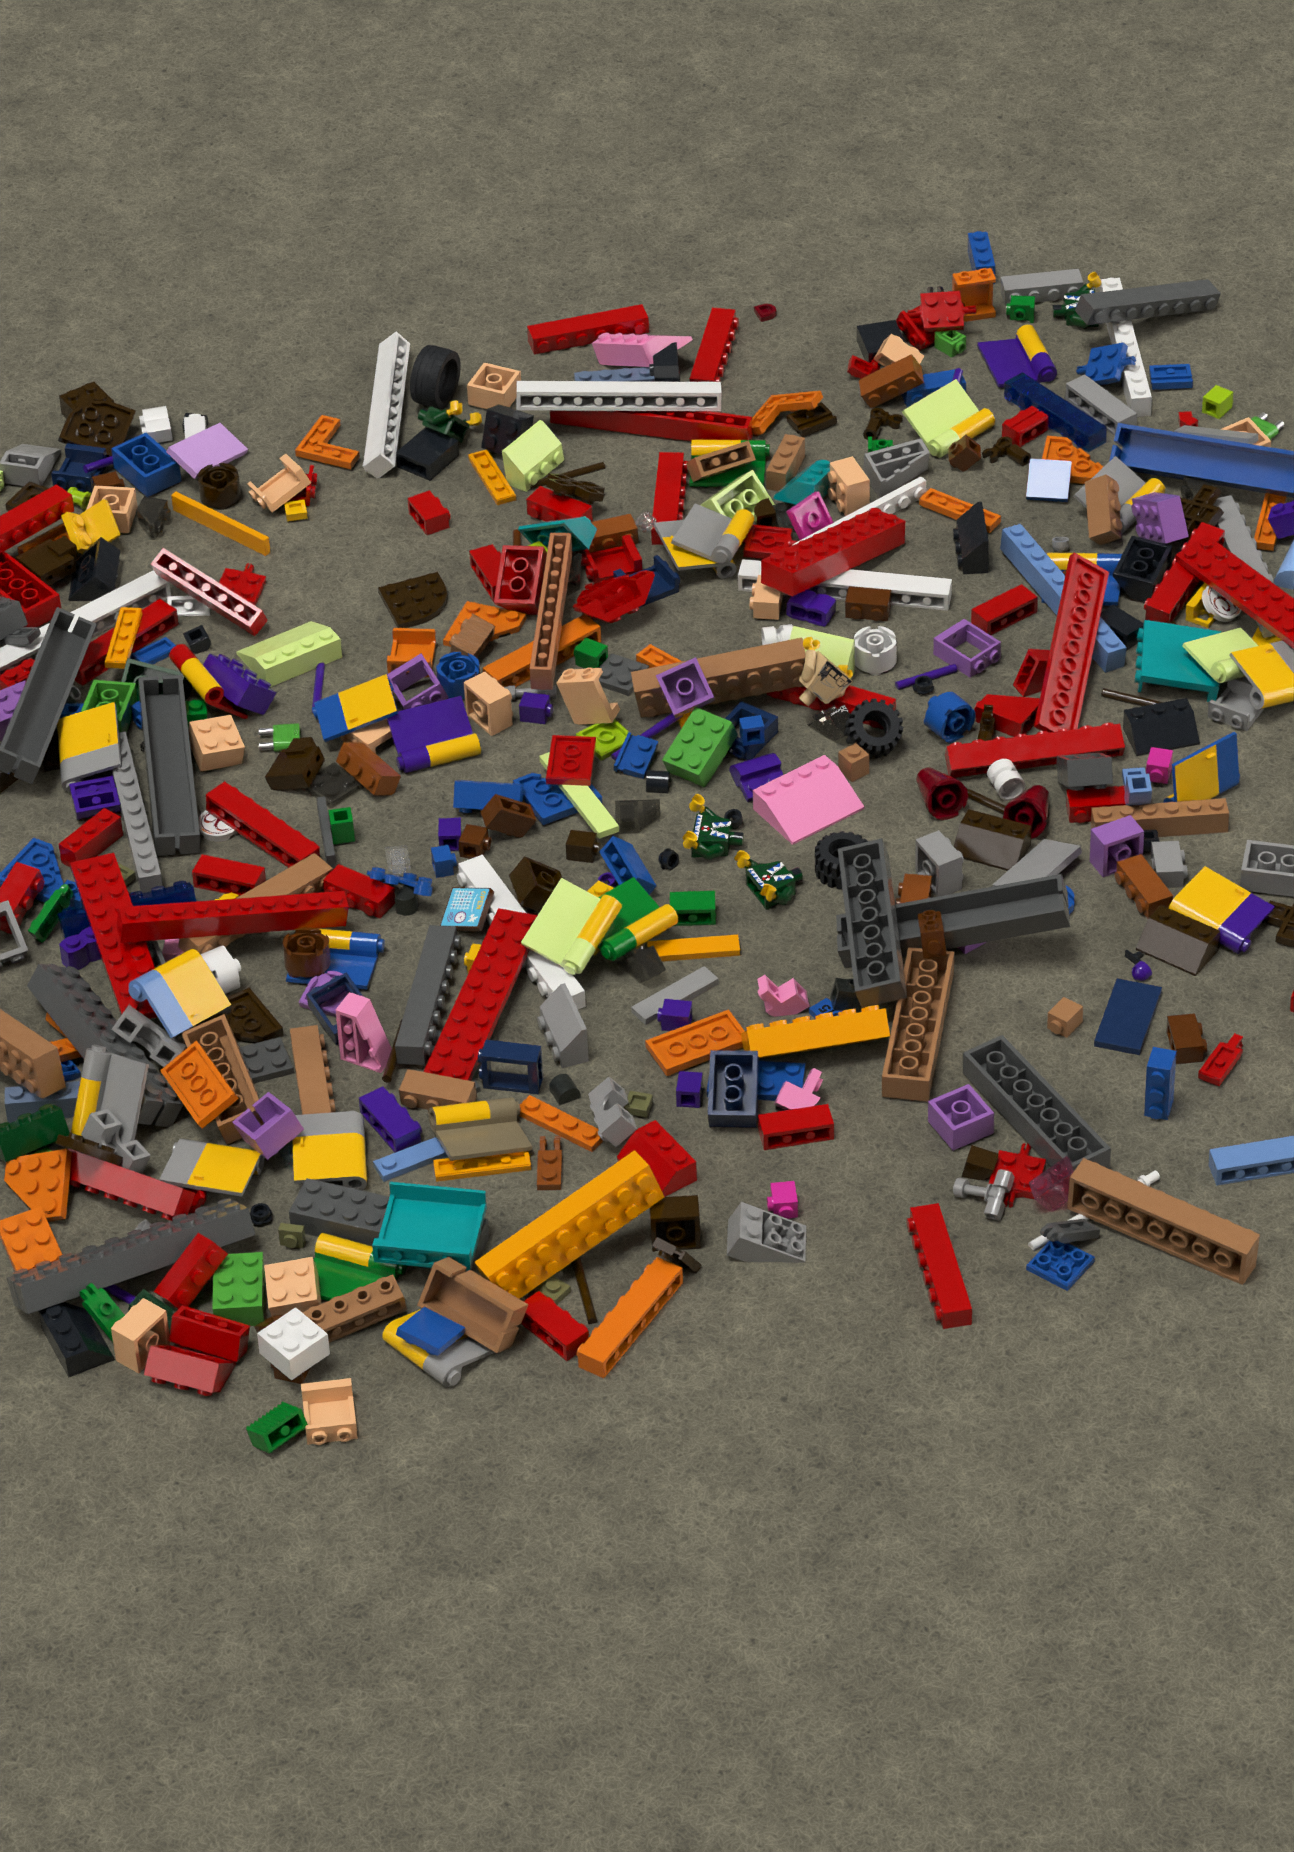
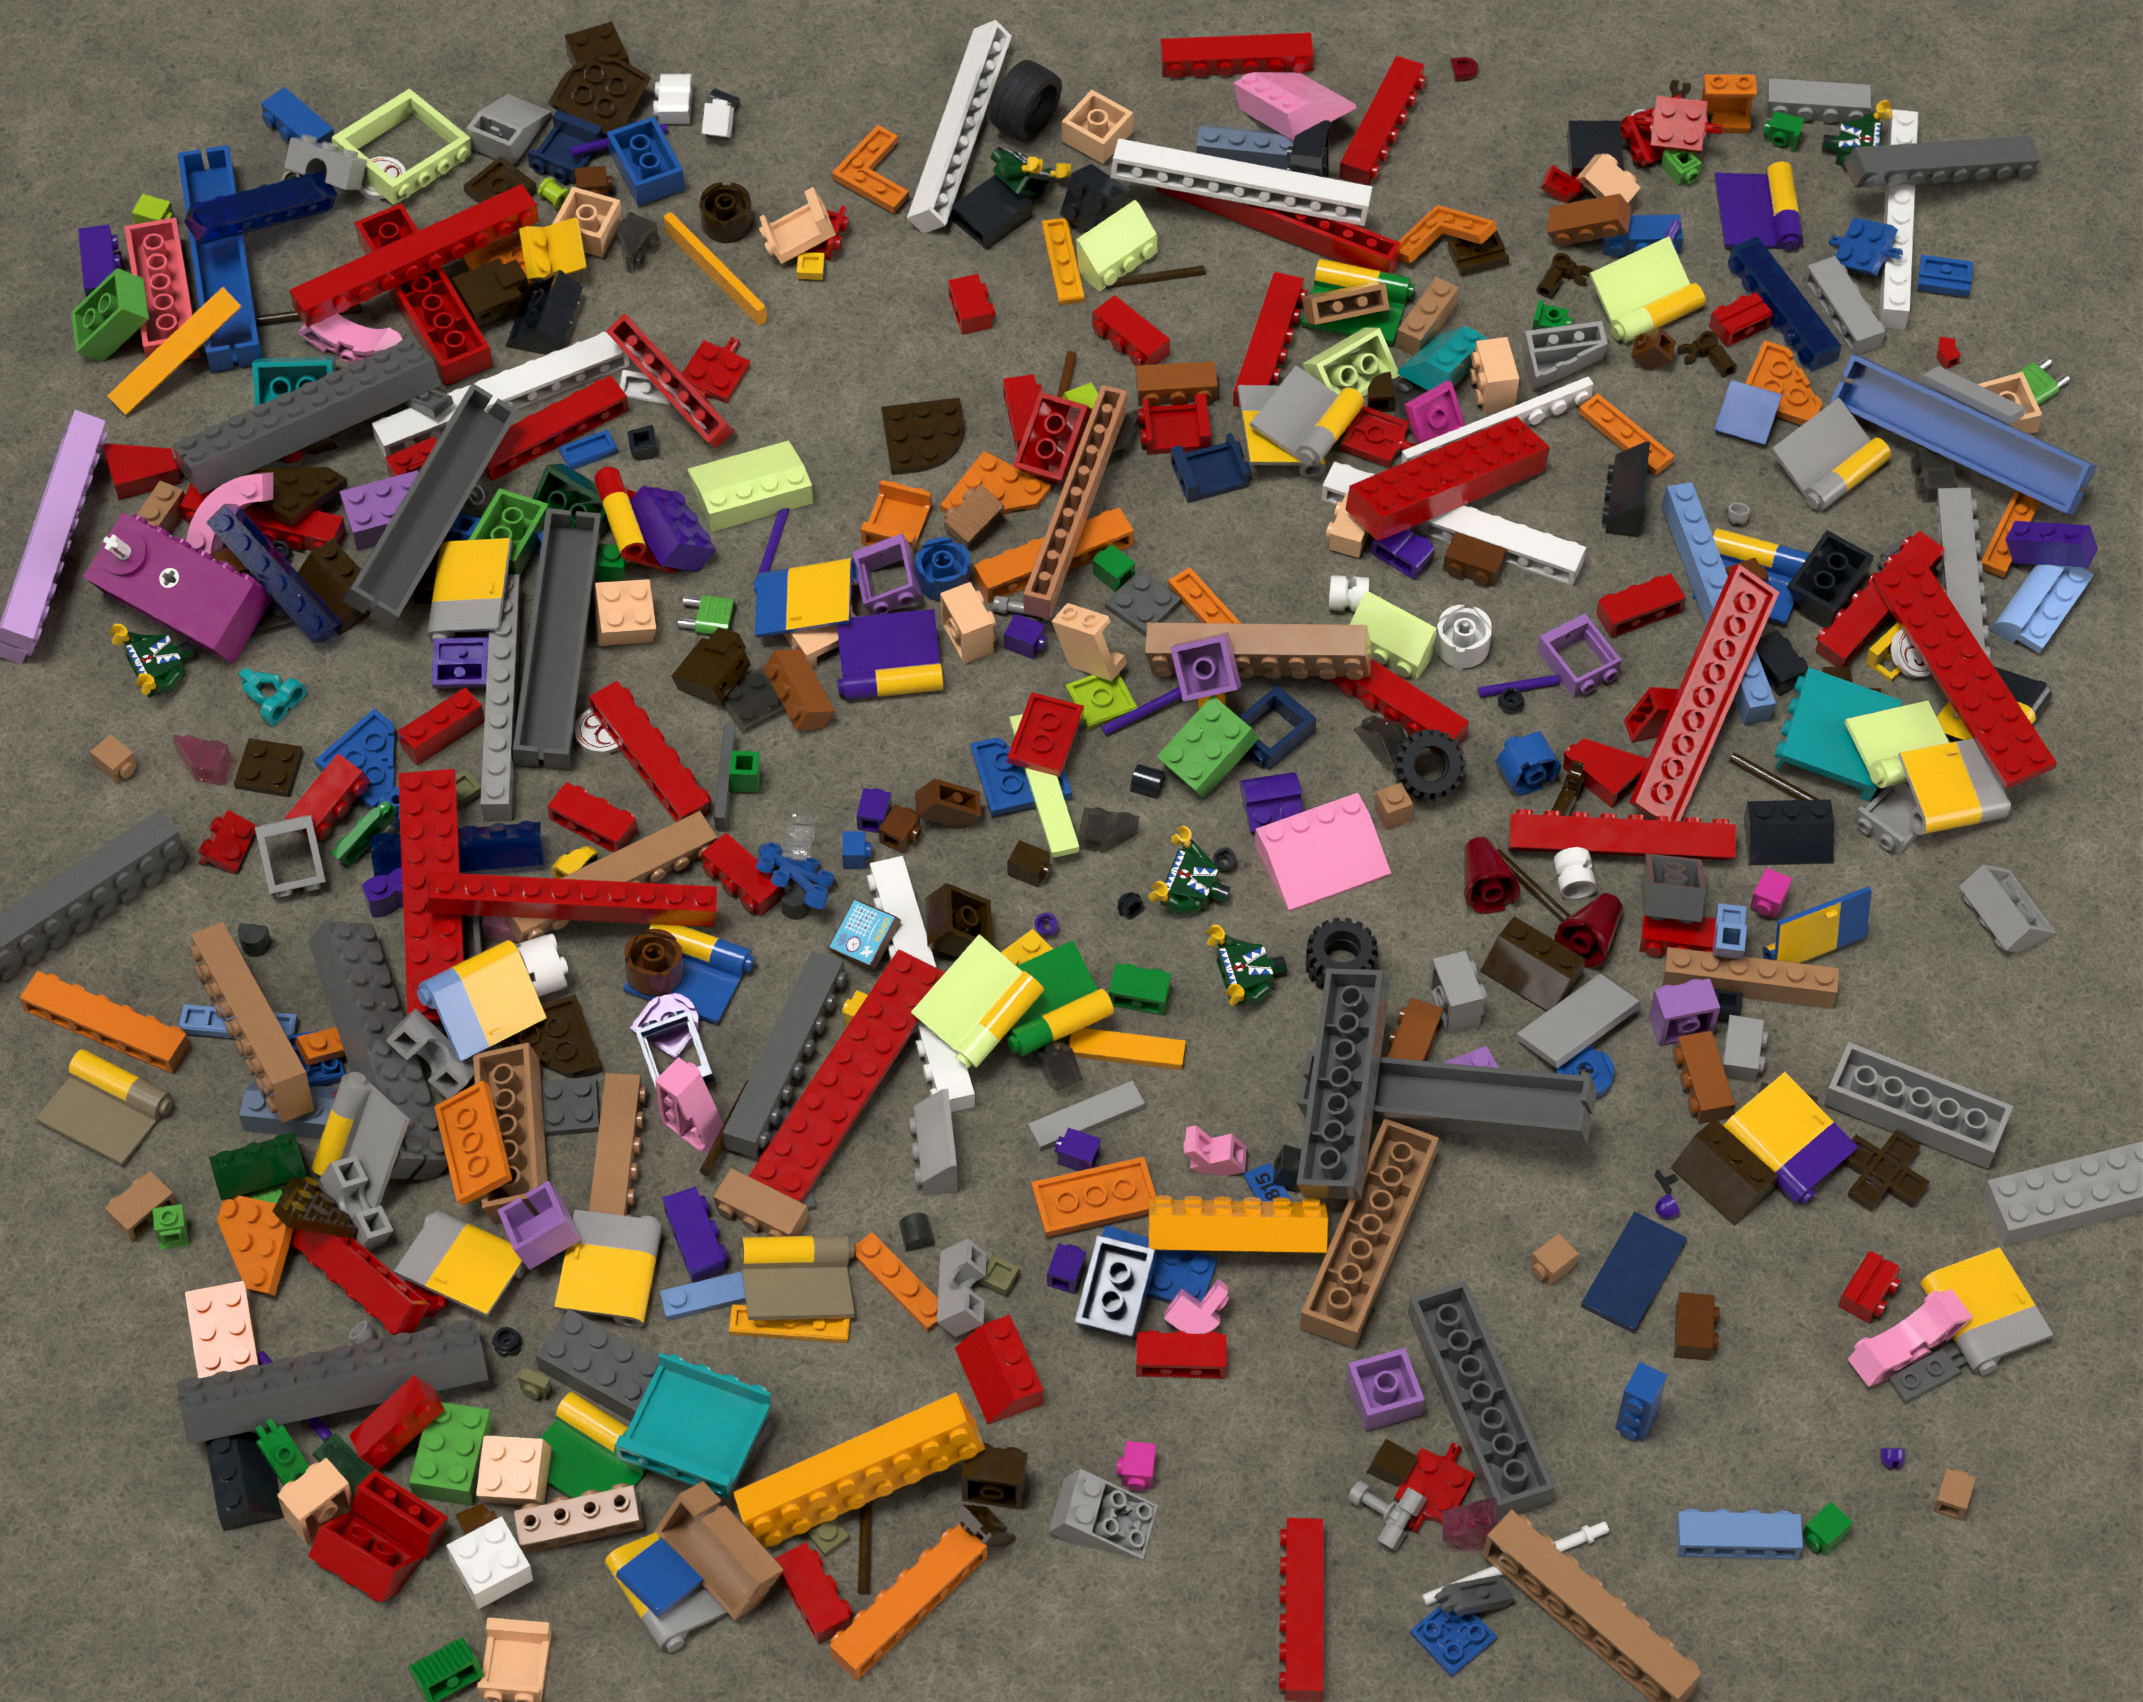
camera: 10 degrees right, 15 degrees up
(123, 637) = (551, 428): light orange tile -> none
(206, 448) = (723, 155): lavender tile -> none
(477, 794) = (928, 760): blue brick -> none
(514, 1054) = (856, 1191): dark blue window -> none
(549, 1165) = (870, 1343): dark orange hinge -> none
(565, 485) = (1165, 309): dark brown plate -> none
(581, 531) = (1139, 382): teal slope -> none
(615, 596) = (1158, 489): red wedge -> none
(626, 863) = (1075, 911): blue brick -> none
(636, 755) = (1129, 736): blue plate -> none
(645, 521) = (1229, 379): clear bush -> none
(751, 730) = (1276, 738): blue plate -> none
(822, 676) = (1381, 679): tan torso -> none
(932, 934) = (1415, 1109): reddish brown bracket -> none
(980, 251) = (1753, 39): blue brick -> none
(1103, 509) = (1802, 479): medium nougat brick -> none
(1159, 517) = (1868, 510): medium lavender brick -> none
(1201, 509) = (1918, 505): dark brown plate -> none
(1217, 402) = (1993, 329): lime brick -> none
(1222, 1061) = (1732, 1369): red hinge -> none

